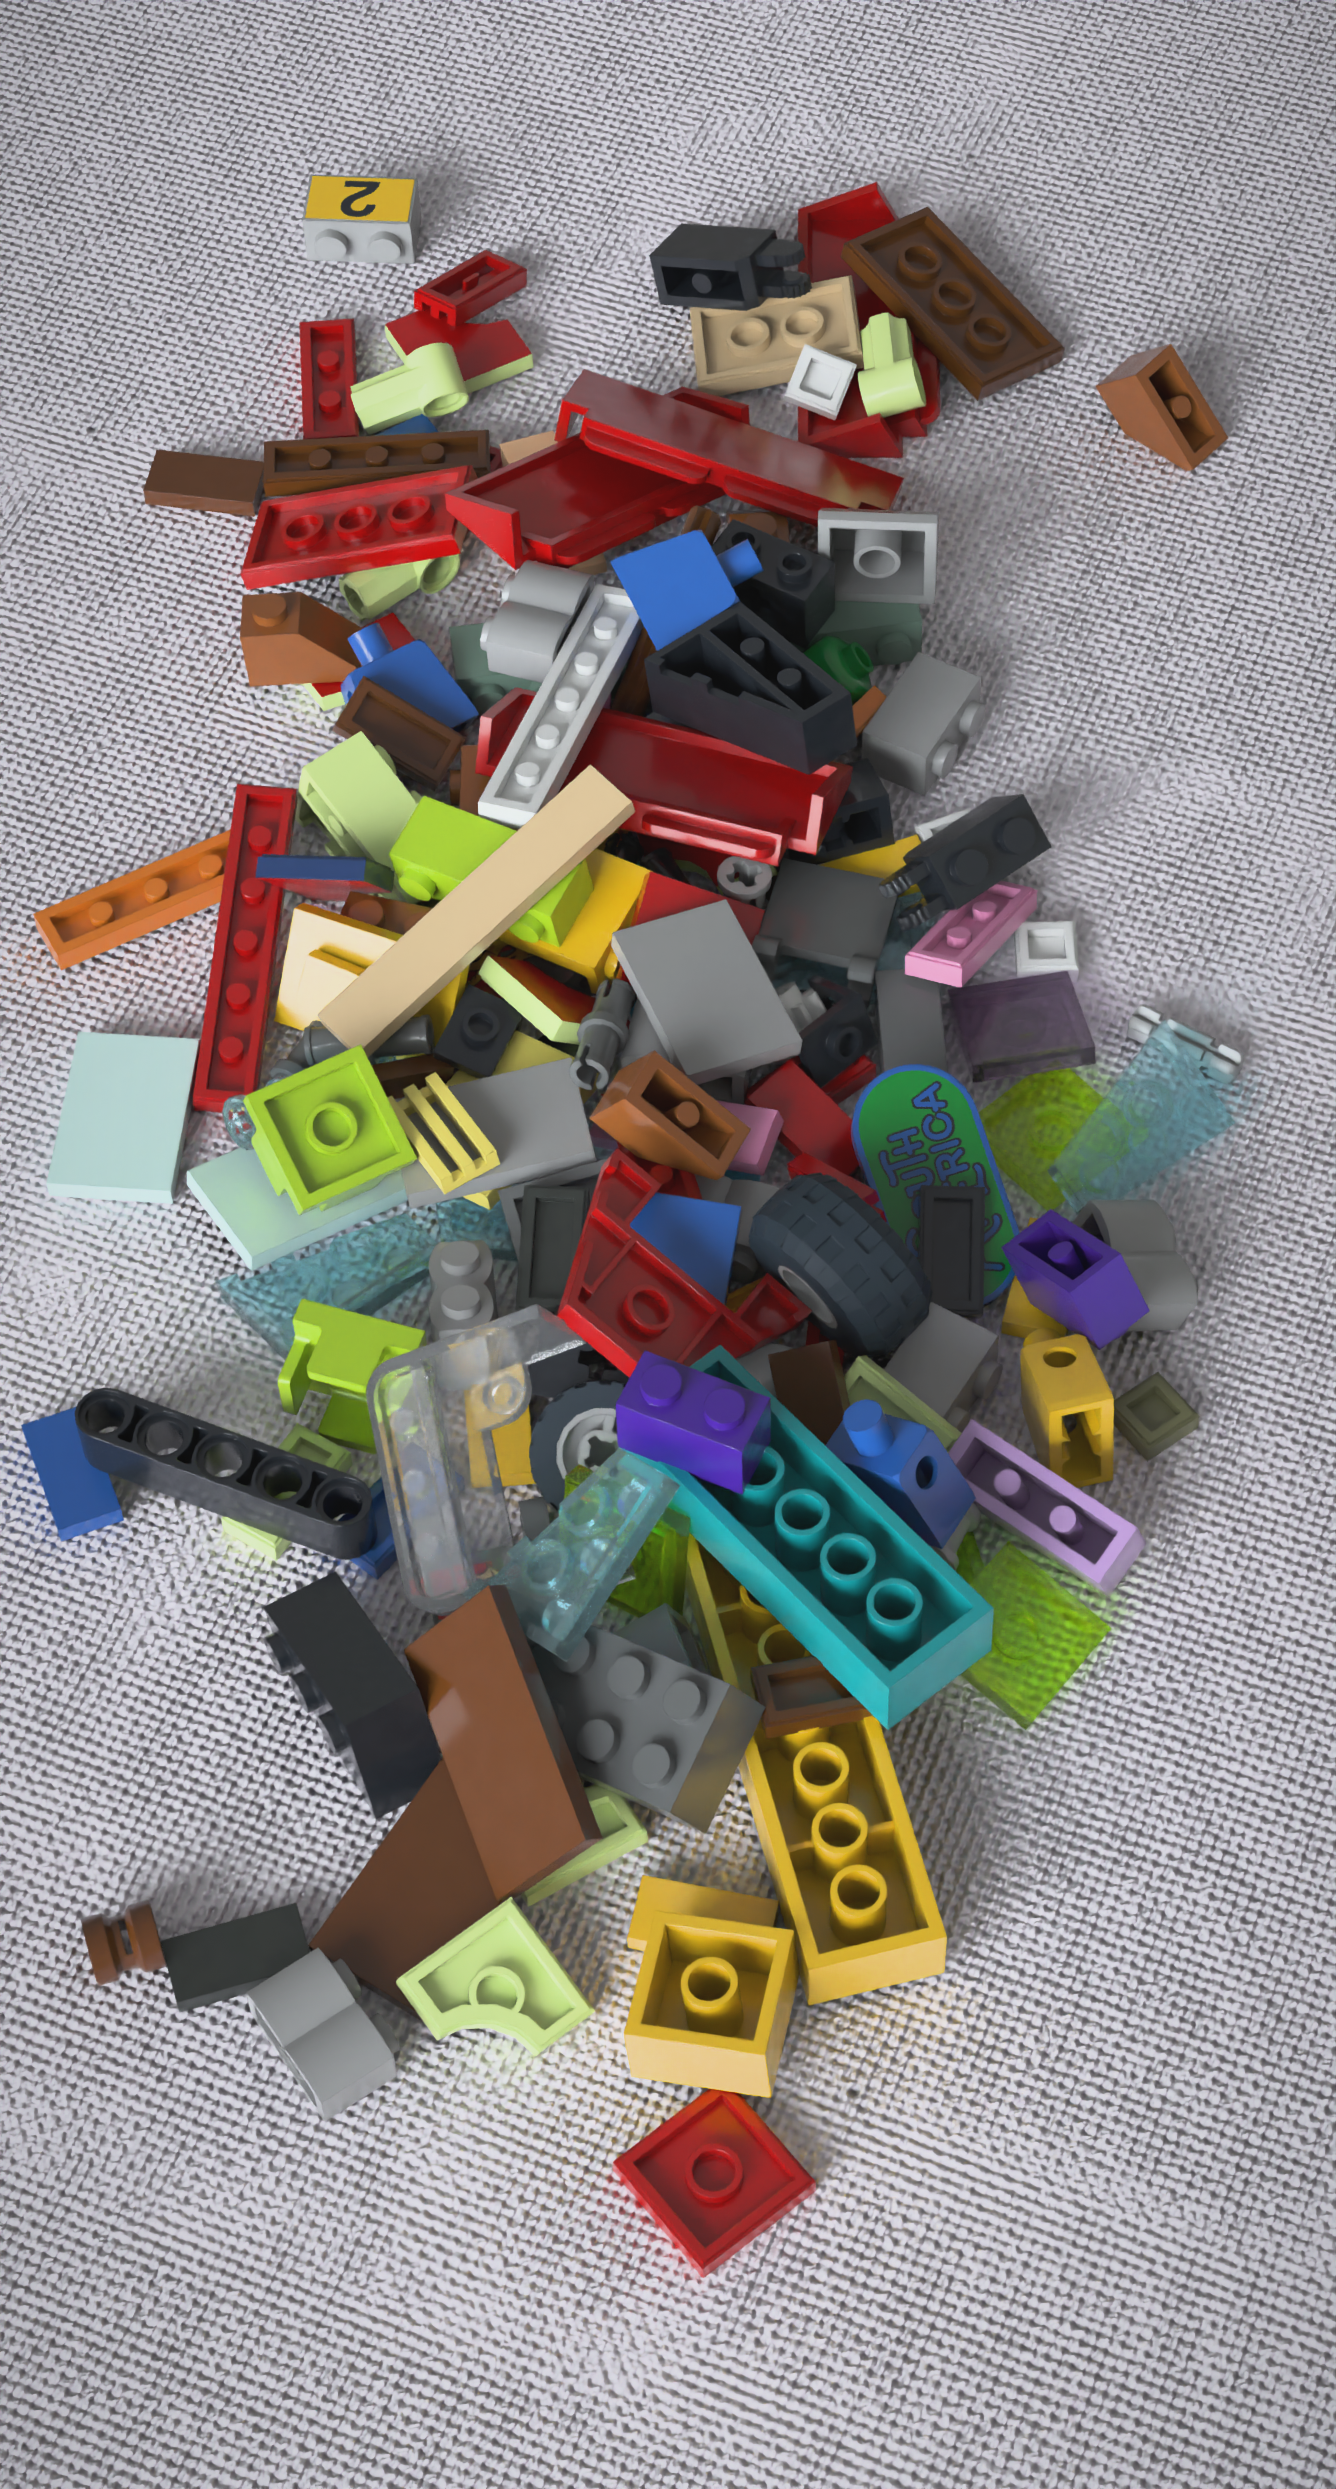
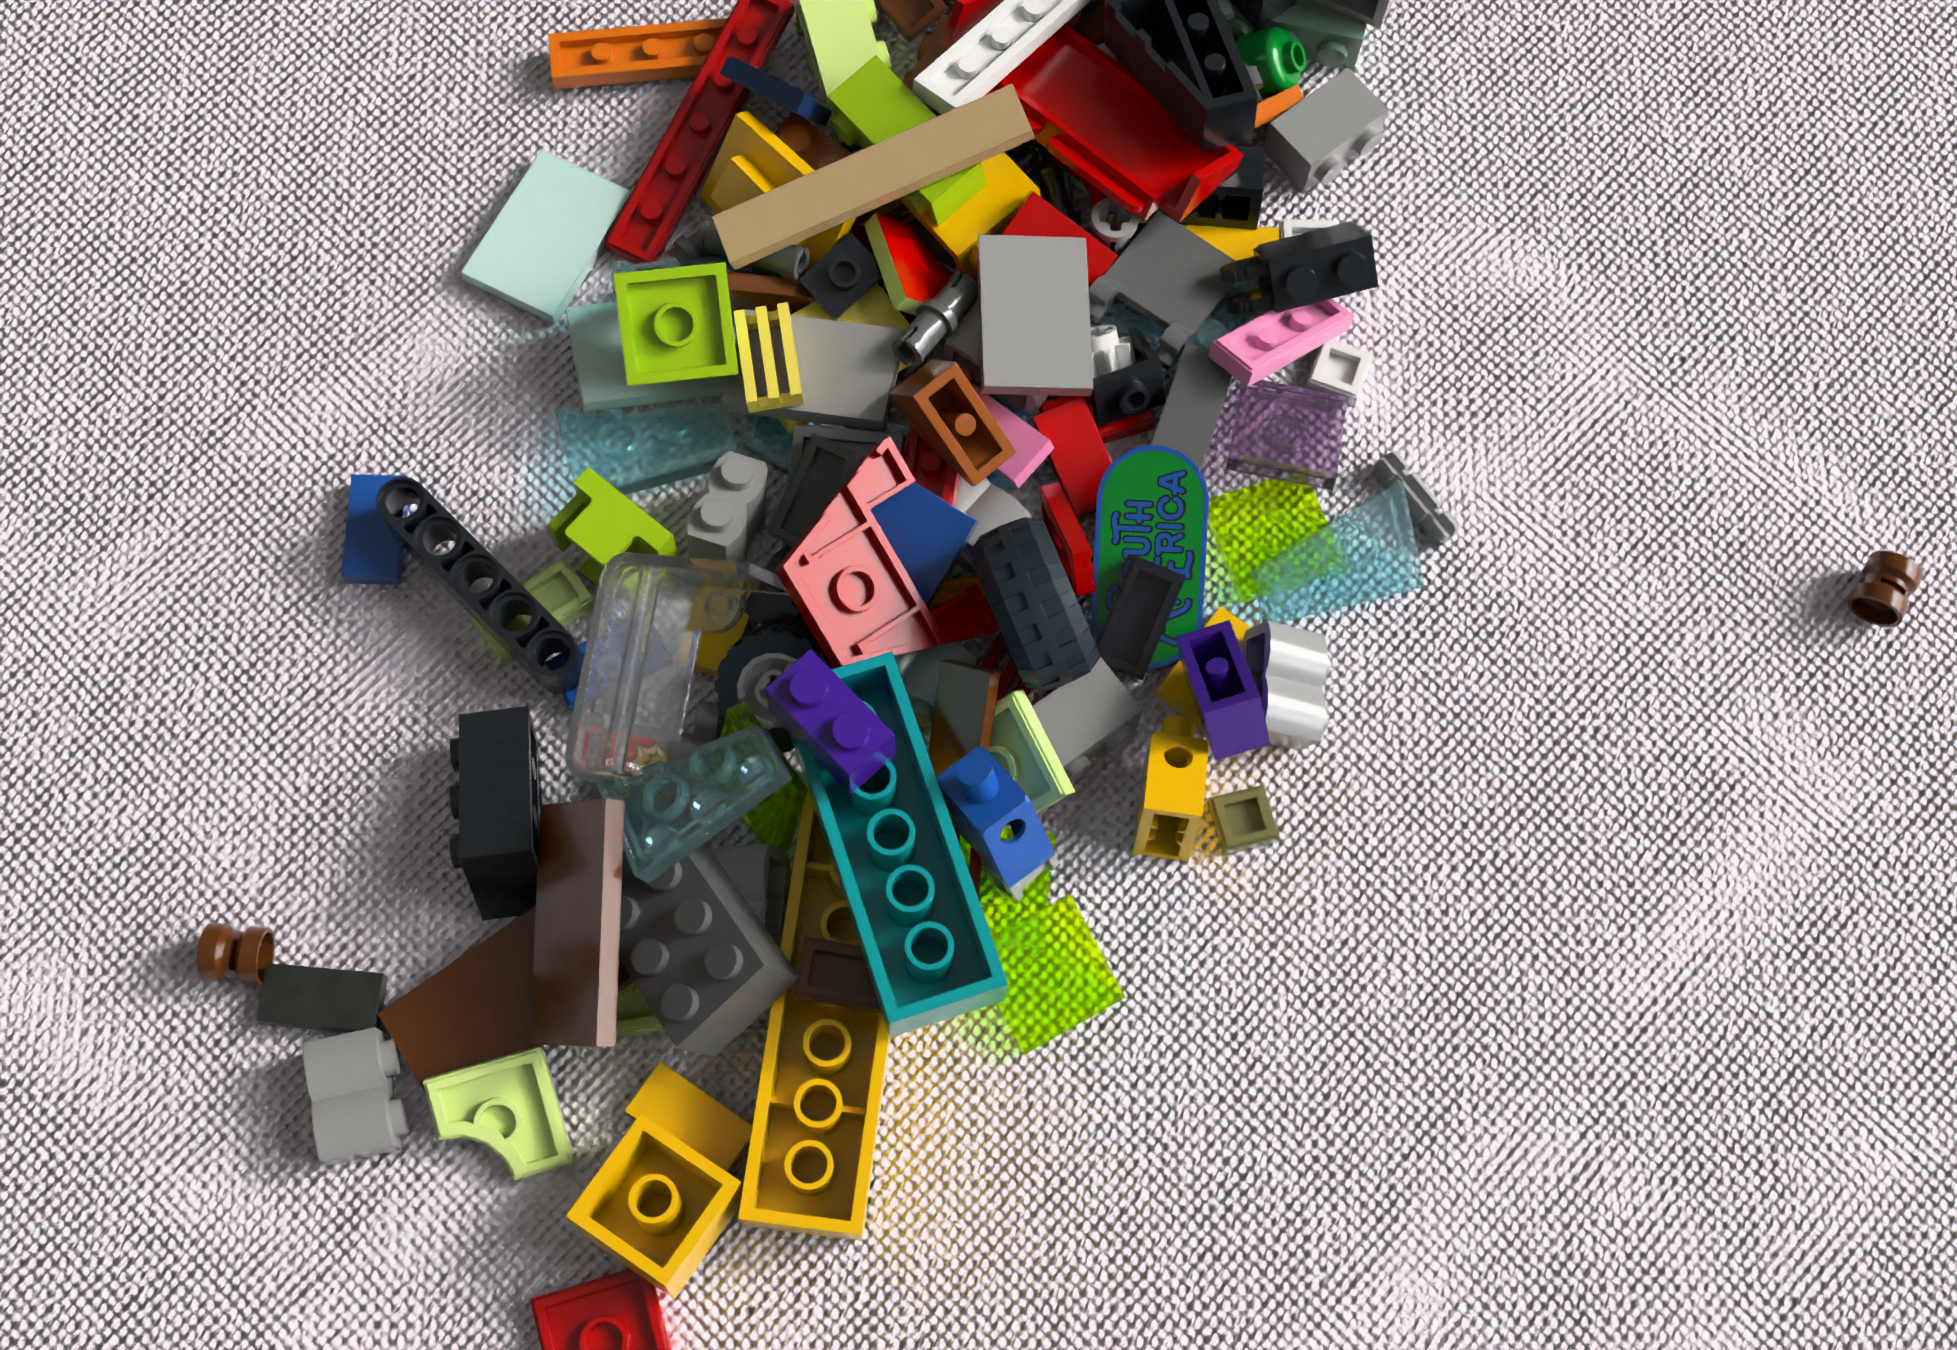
camera: 15 degrees right, 15 degrees up
(1046, 1510) = (1110, 875): lavender brick -> none

